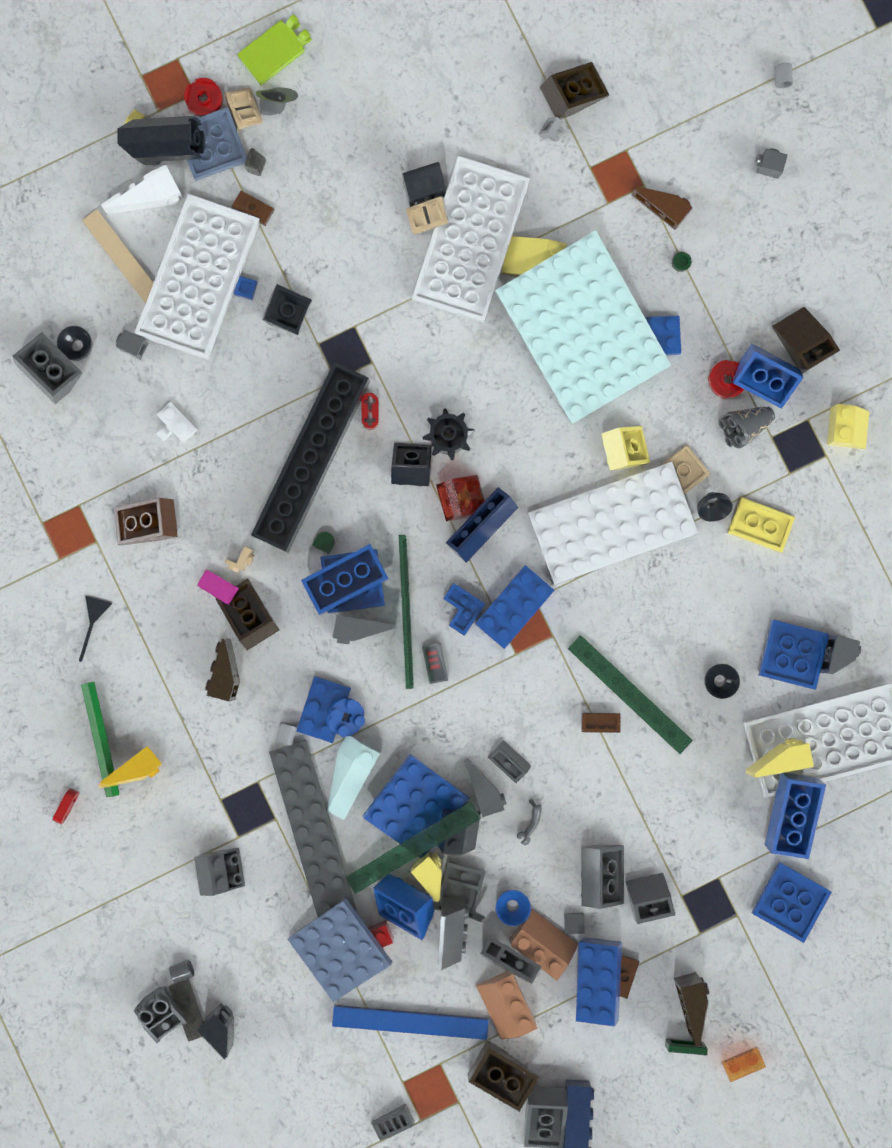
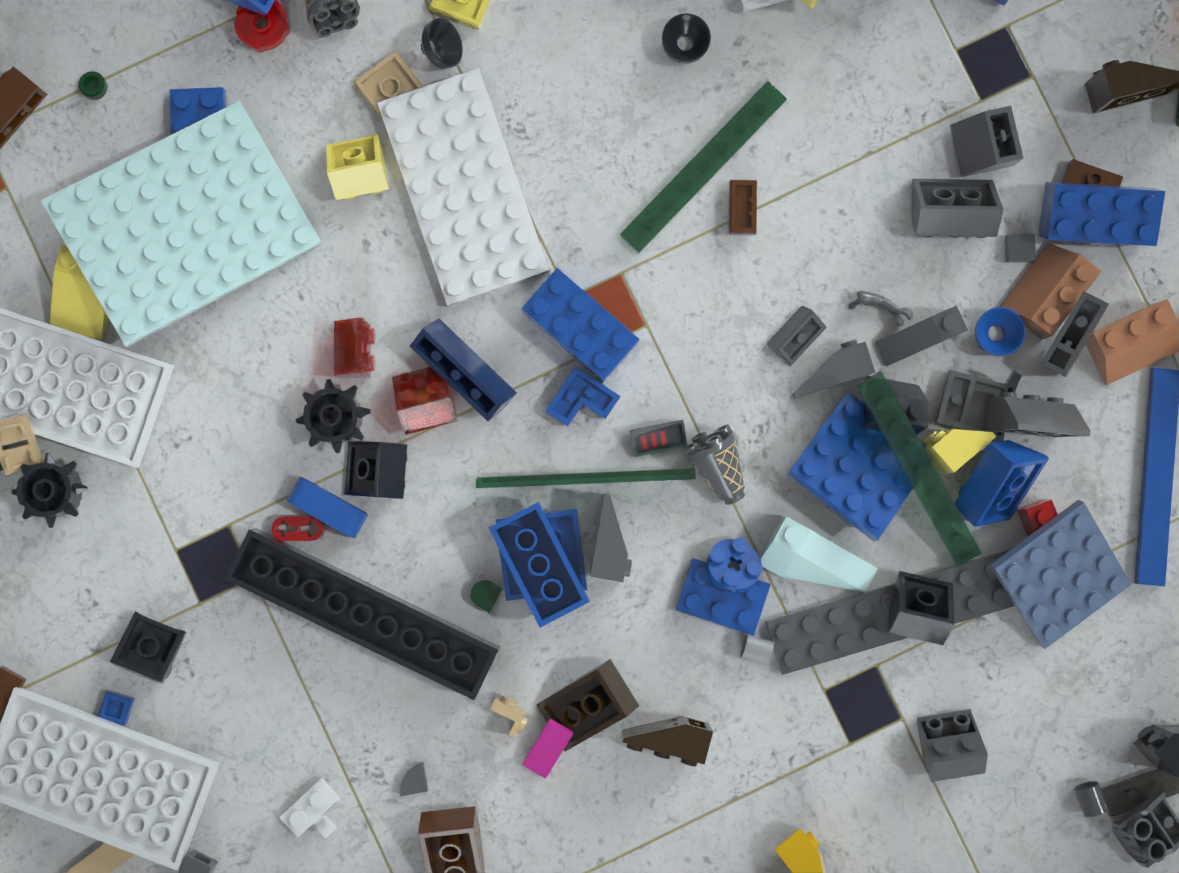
camera: 90 degrees left, 0 degrees up
(195, 494) = (414, 781): none -> dark grey tile
(315, 850) = (922, 608): none -> black slope
(384, 431) = (327, 507): none -> blue beam
(398, 229) = (34, 485): none -> black brick
(417, 705) = (718, 463): none -> dark grey cone
(496, 447) = (353, 348): none -> clear red slope
(509, 851) = (921, 335): none -> dark grey slope

